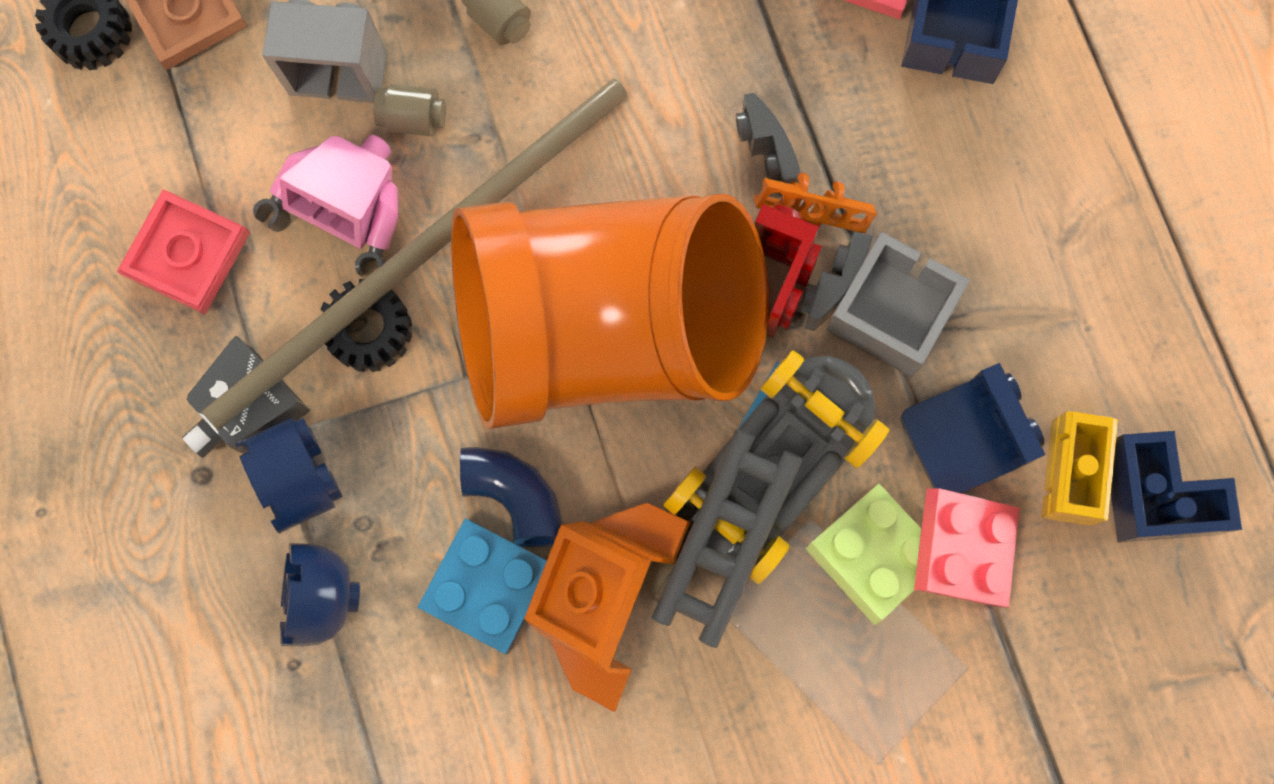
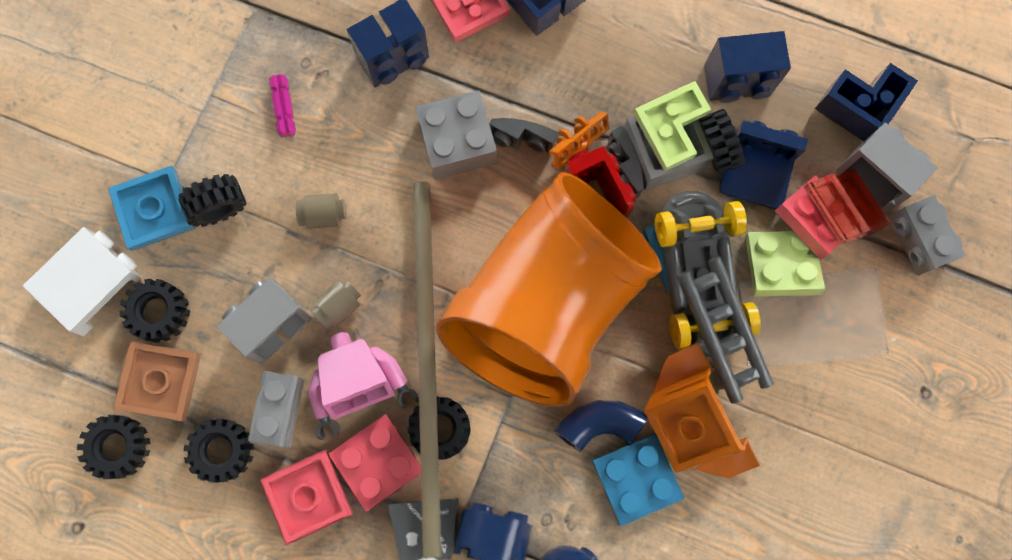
camera: 60 degrees left, 0 degrees up
(144, 108) = (198, 446): none -> black tyre
(246, 144) = (276, 409): none -> light grey brick
(276, 290) = (376, 462): none -> coral plate
(703, 74) = (457, 135): none -> light grey brick
(916, 269) = (664, 122): none -> yellowish green plate
(951, 359) = (722, 141): none -> black tyre
(1005, 568) = (846, 206): none -> clear red slope
(1061, 696) = (927, 235): none -> light grey brick
(1075, 318) = (746, 66): none -> dark blue piece
(1079, 468) = (825, 128): yellow brick -> none
(1098, 577) = (889, 167): none -> light grey piece

